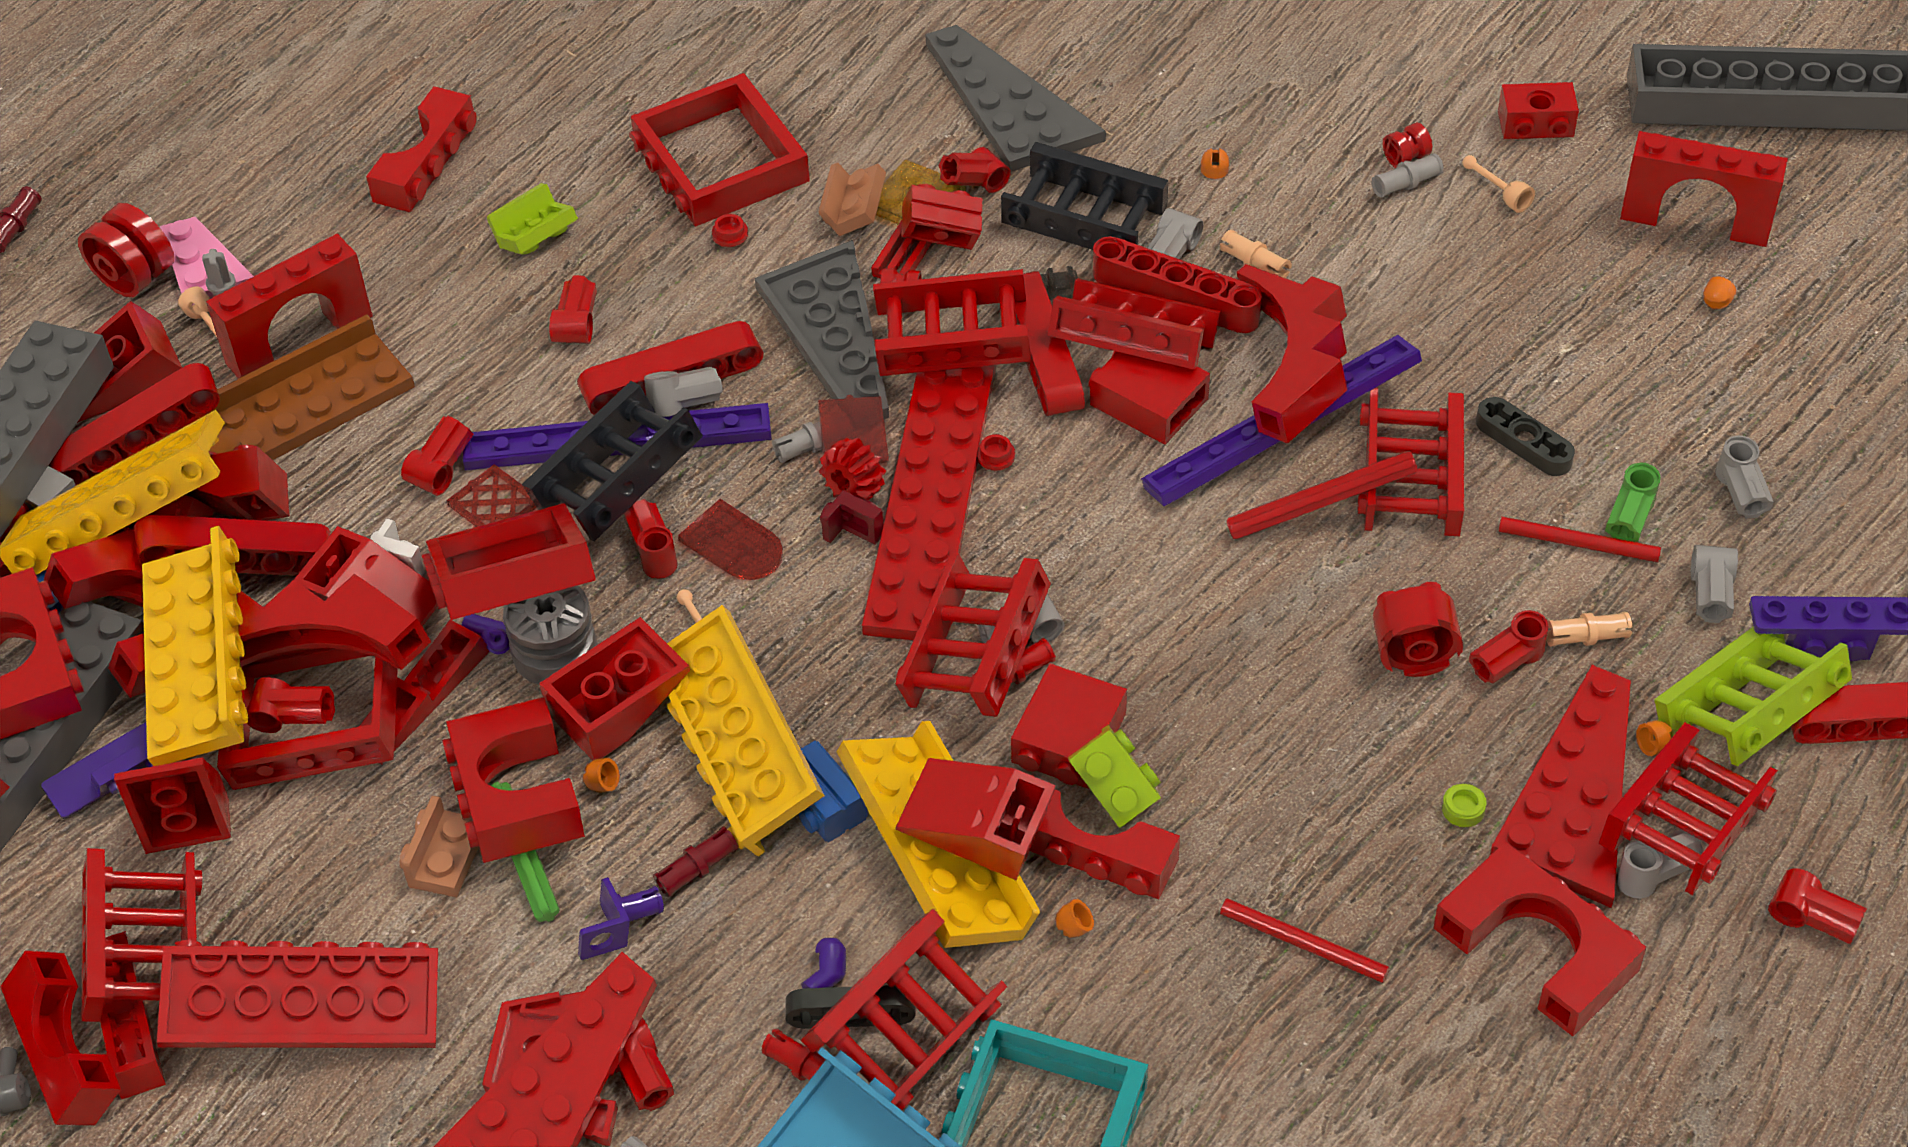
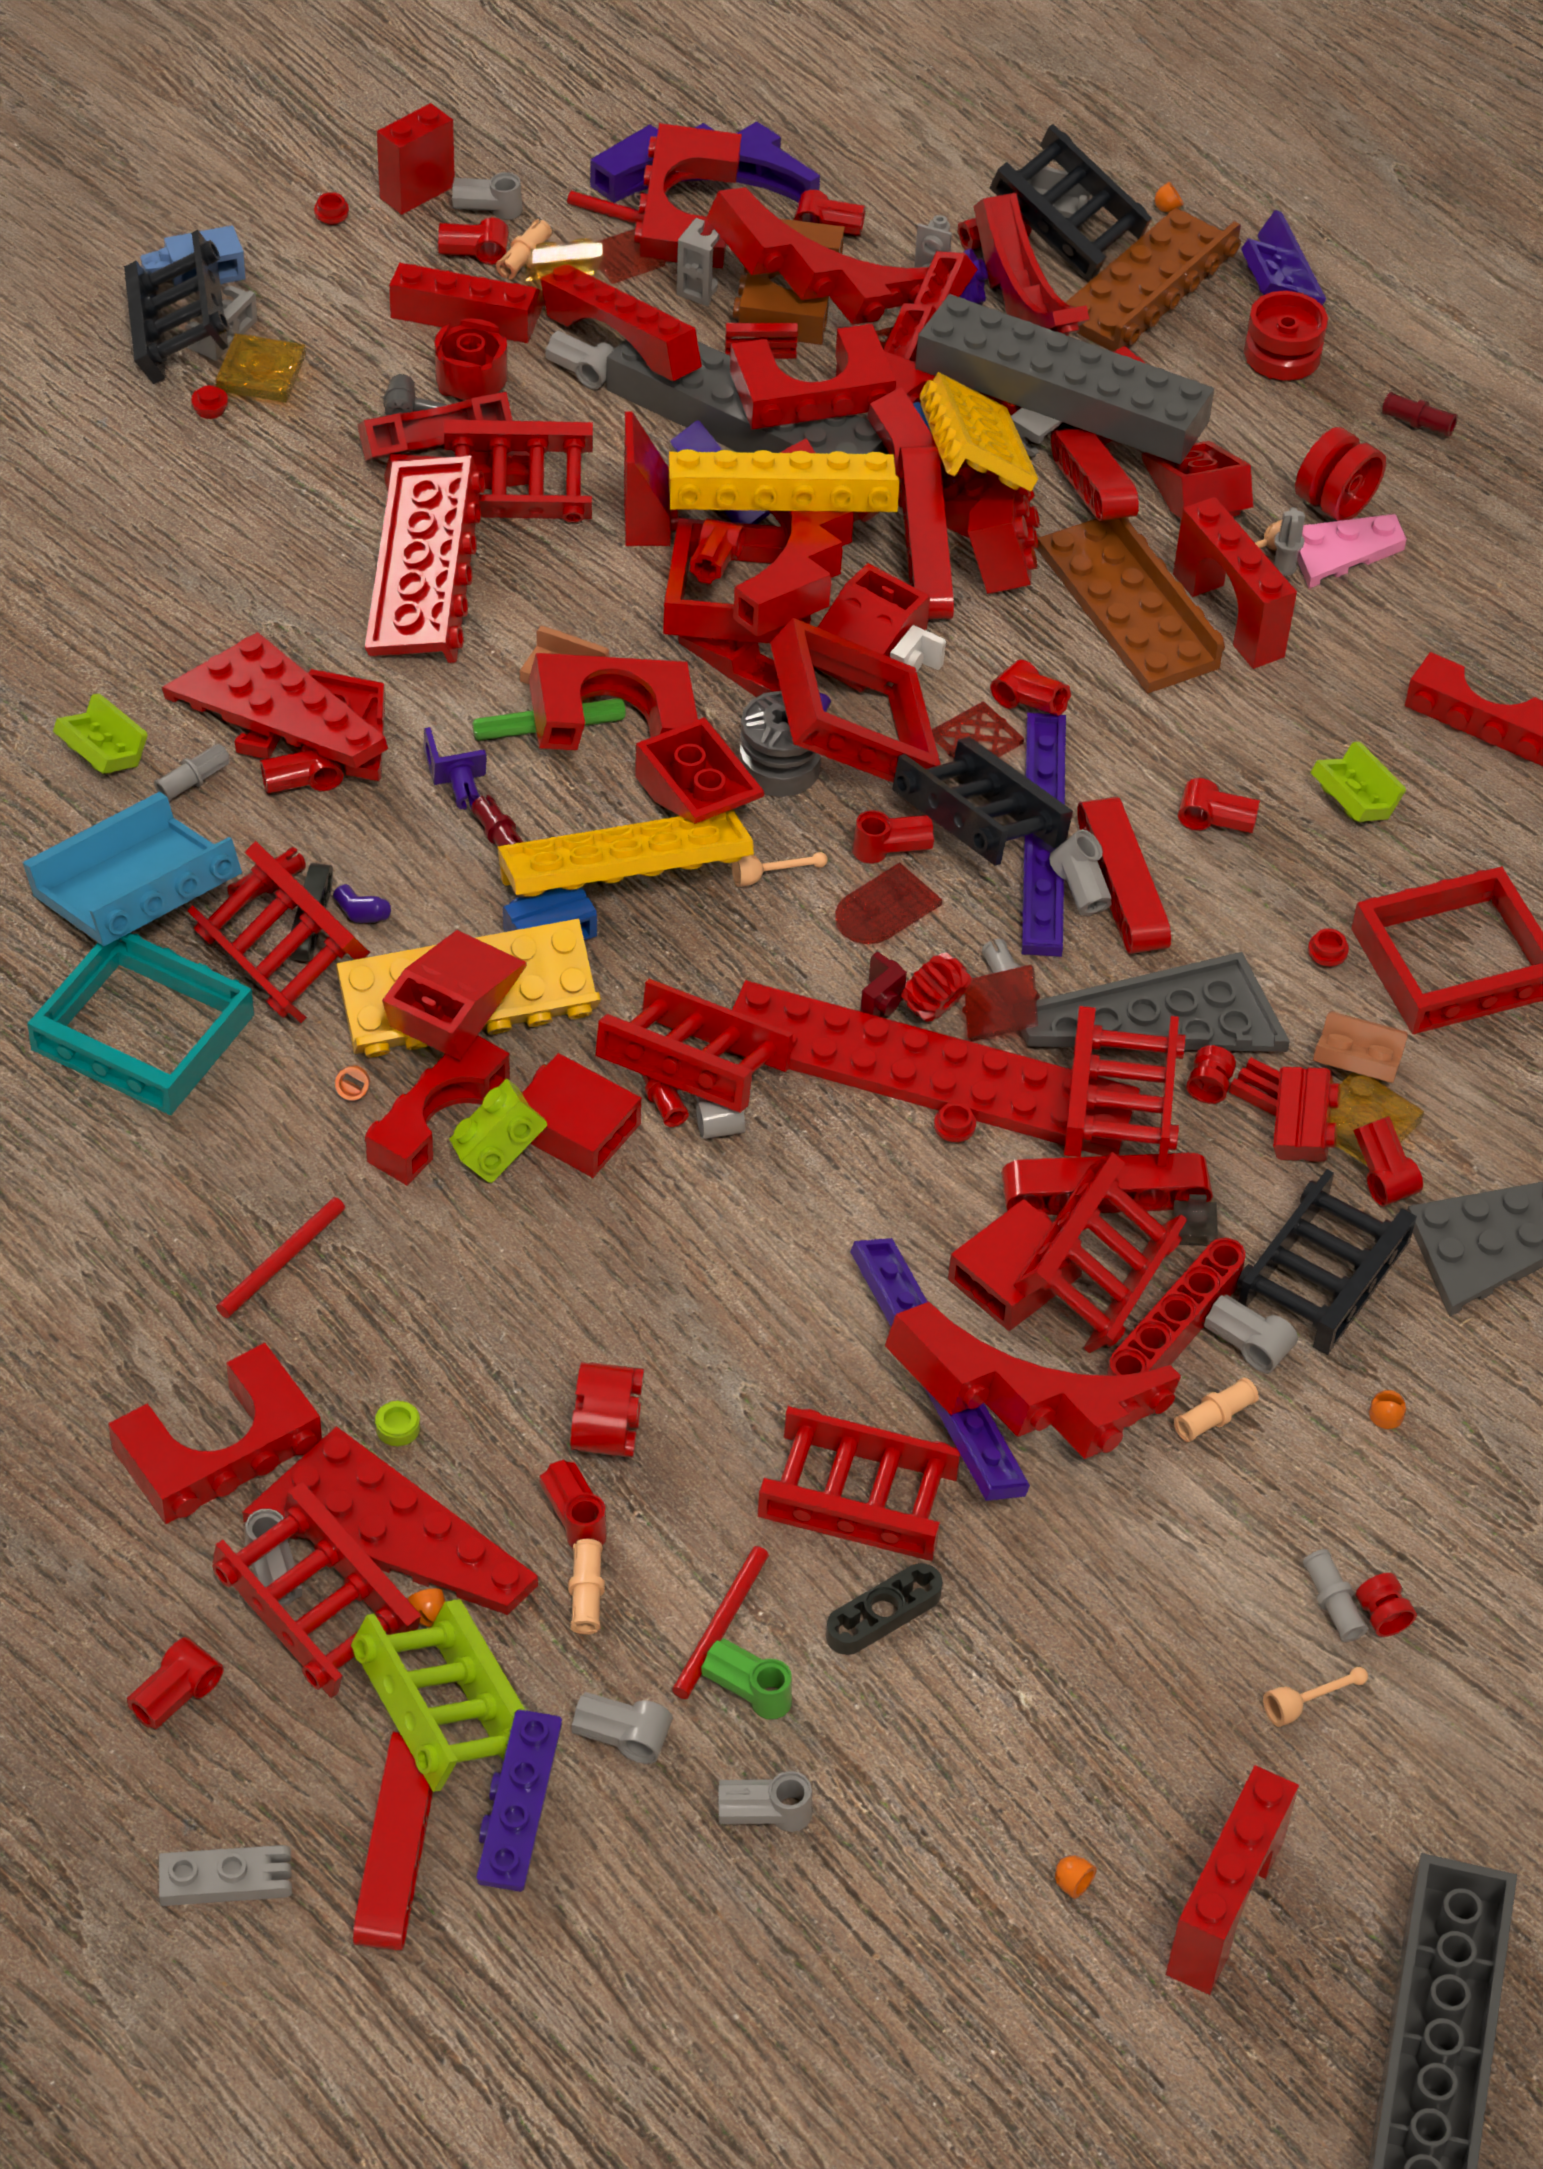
camera: 95 degrees right, 0 degrees up
(601, 775) = (609, 774): orange hinge -> none
(1322, 495) = (813, 1372): red axle -> none
(1538, 110) = (1428, 1790): red brick -> none

